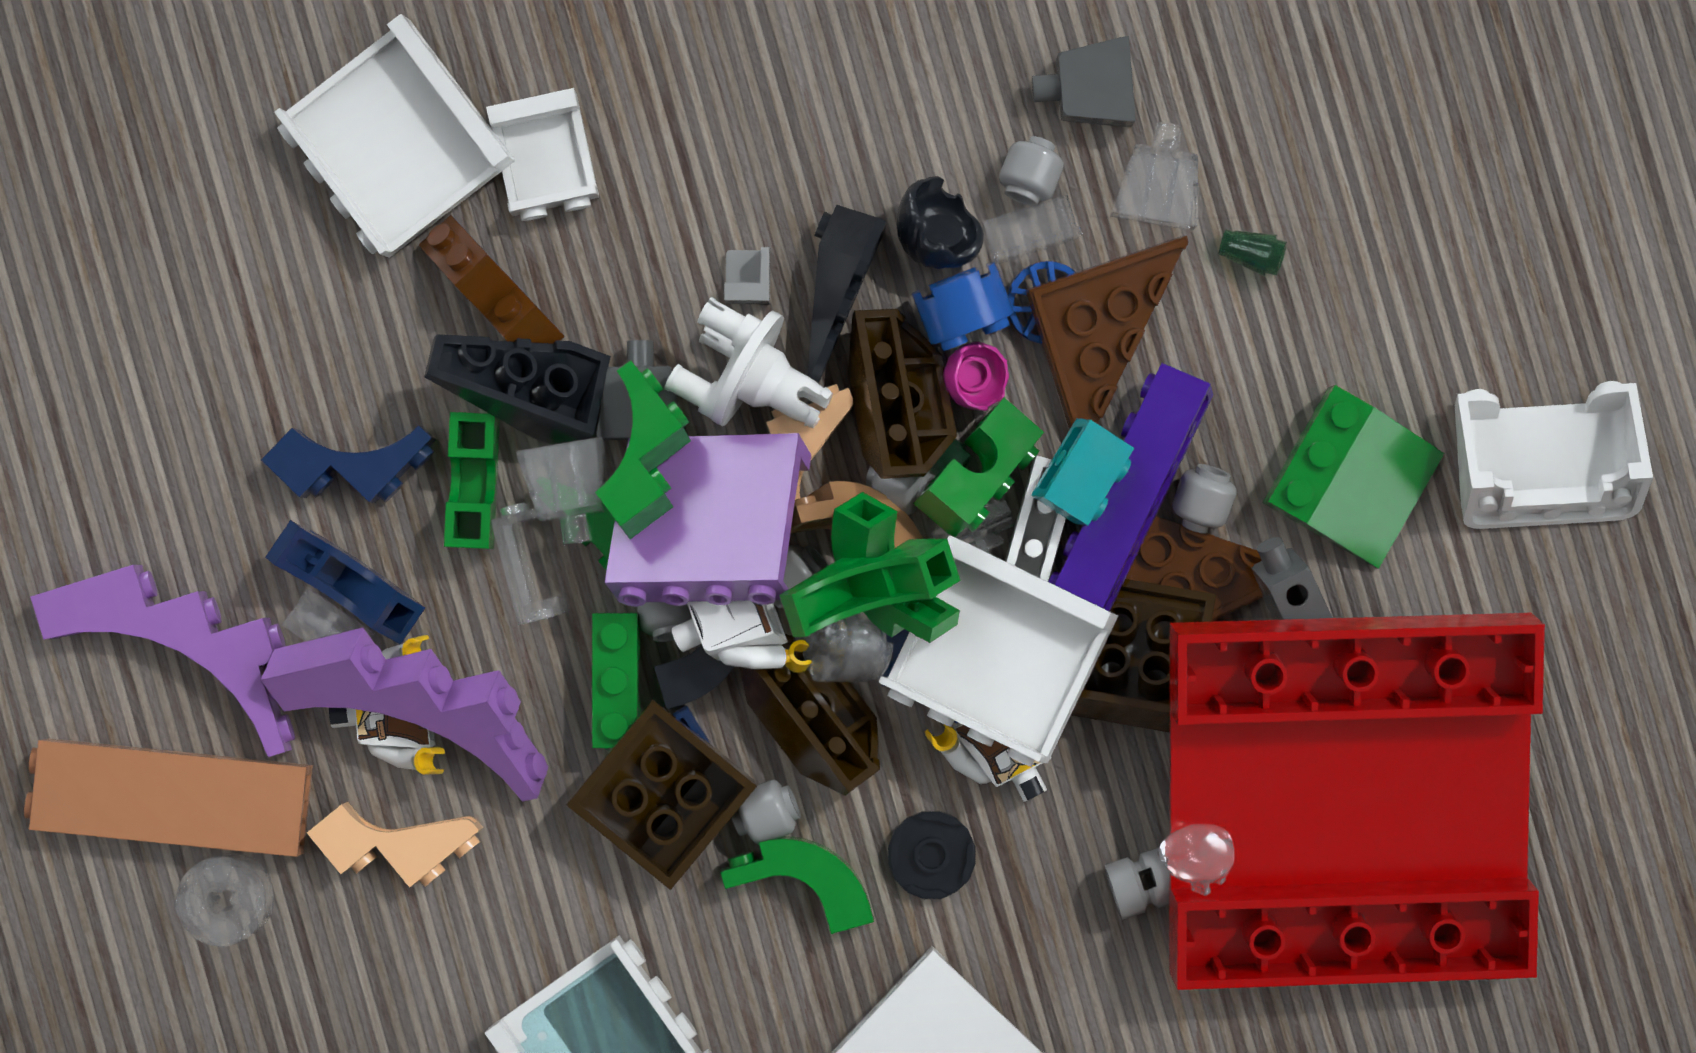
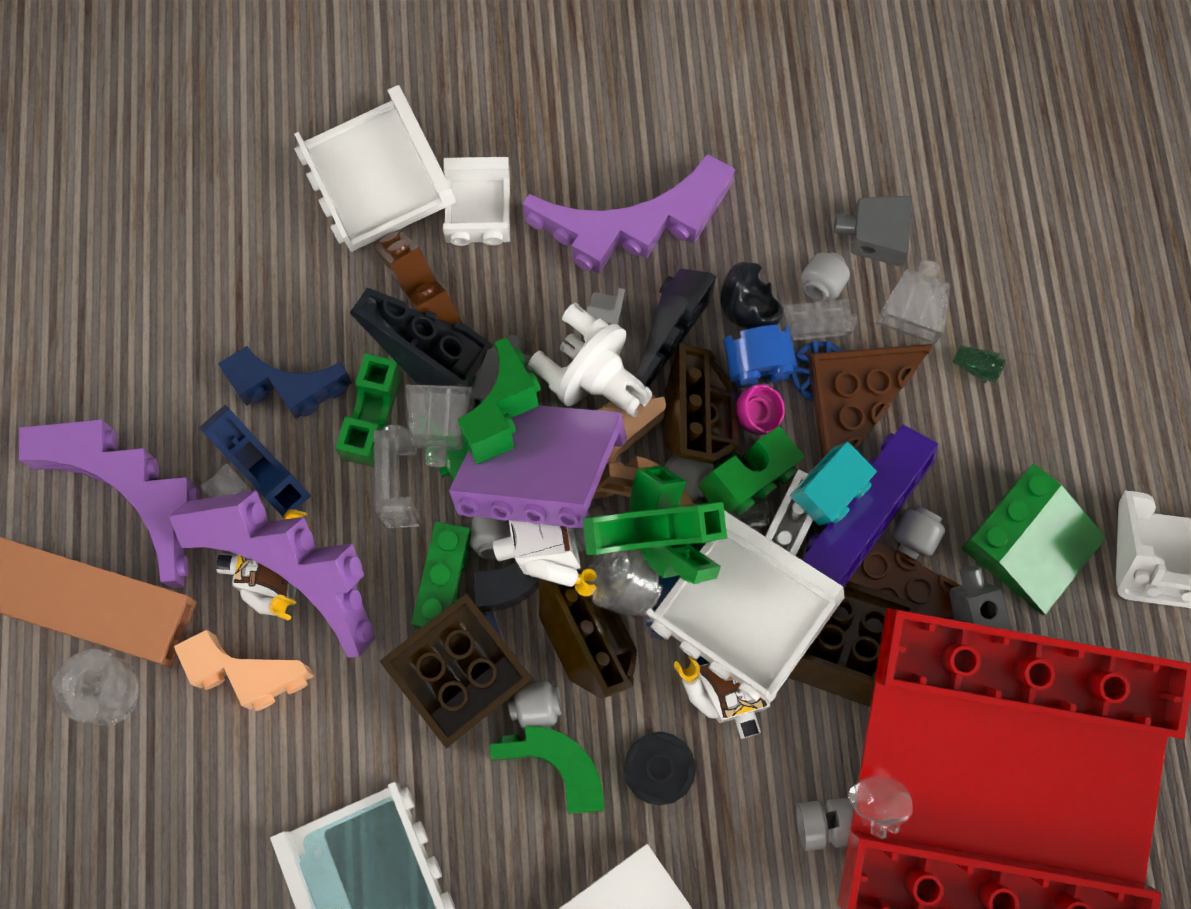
camera: 10 degrees right, 15 degrees down
(716, 170) = (639, 227): none -> medium lavender arch

